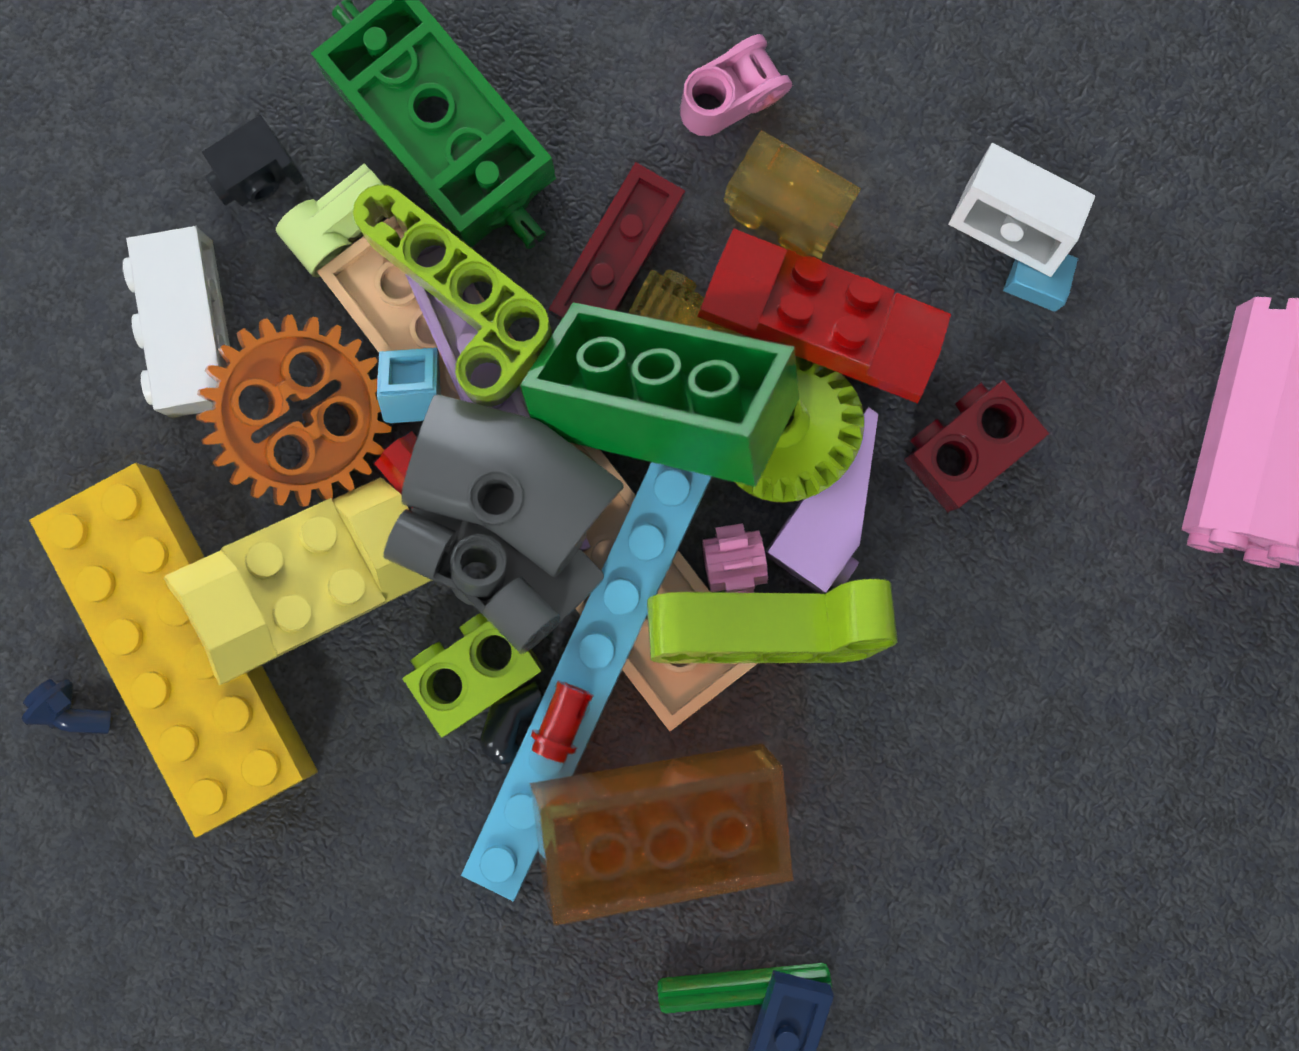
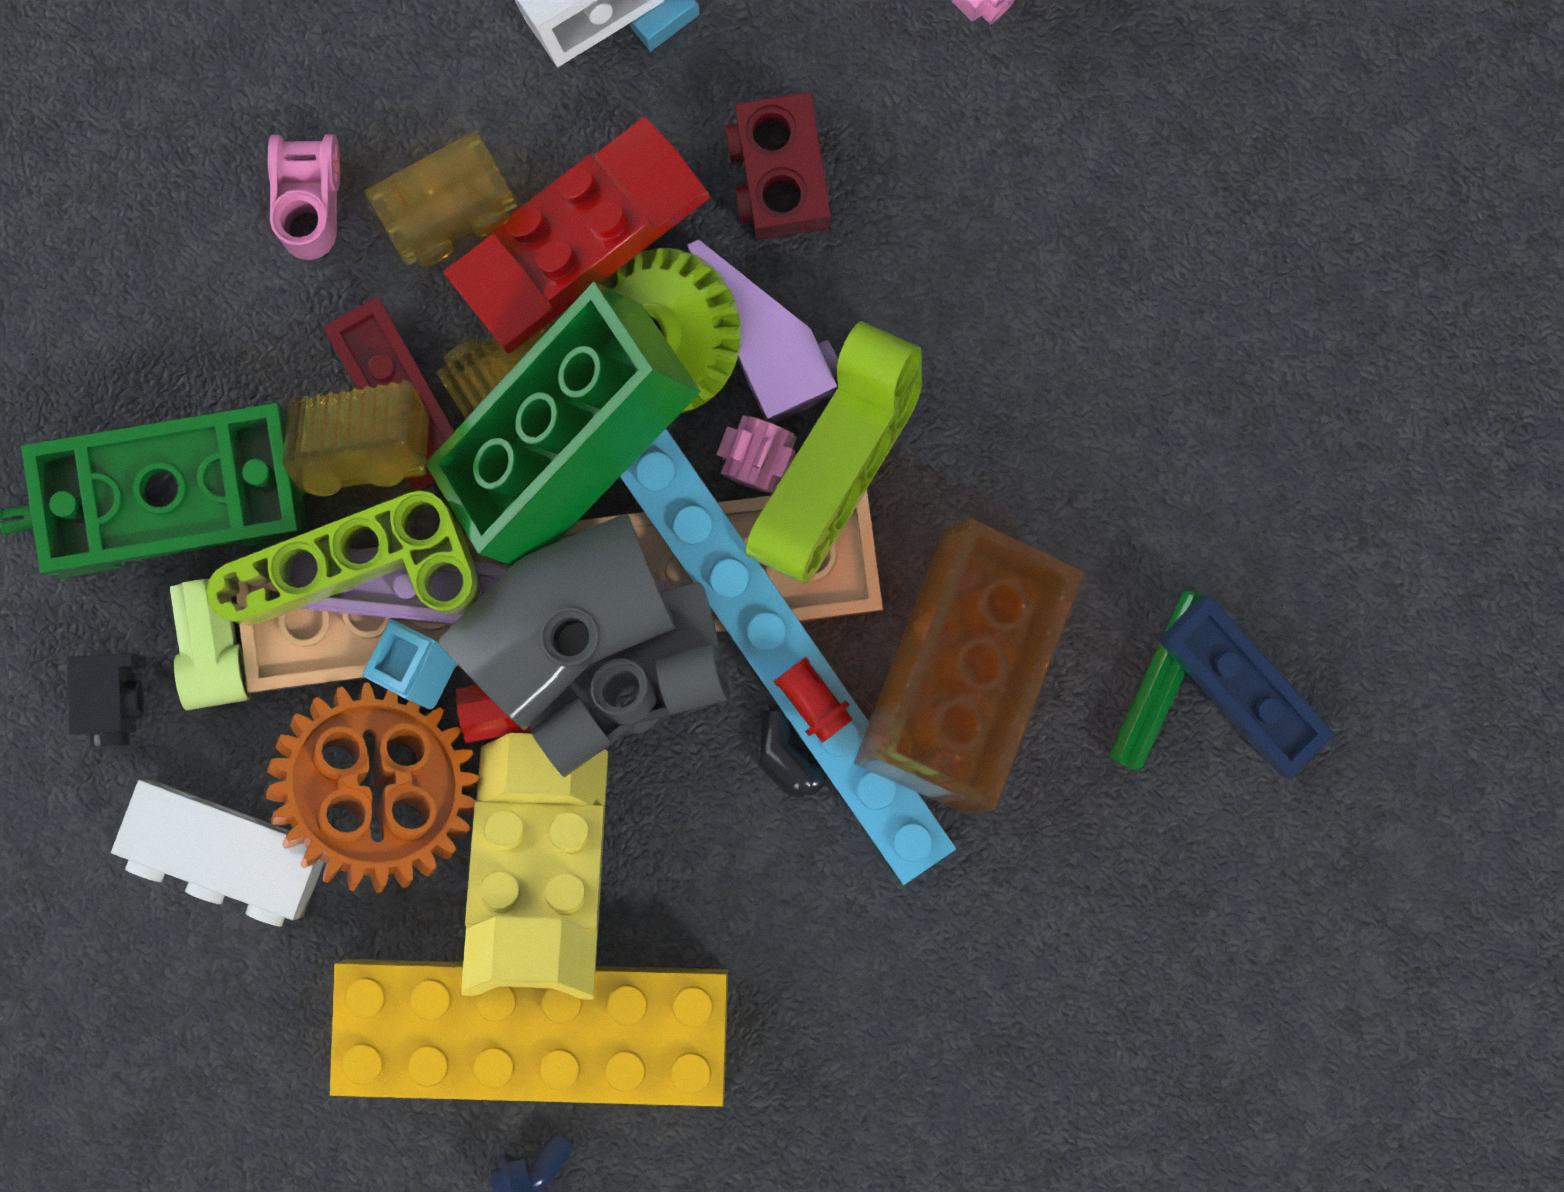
camera: 55 degrees left, 0 degrees up
(480, 683) = (735, 760): lime brick -> none
(560, 236) = (356, 438): none -> clear yellow brick

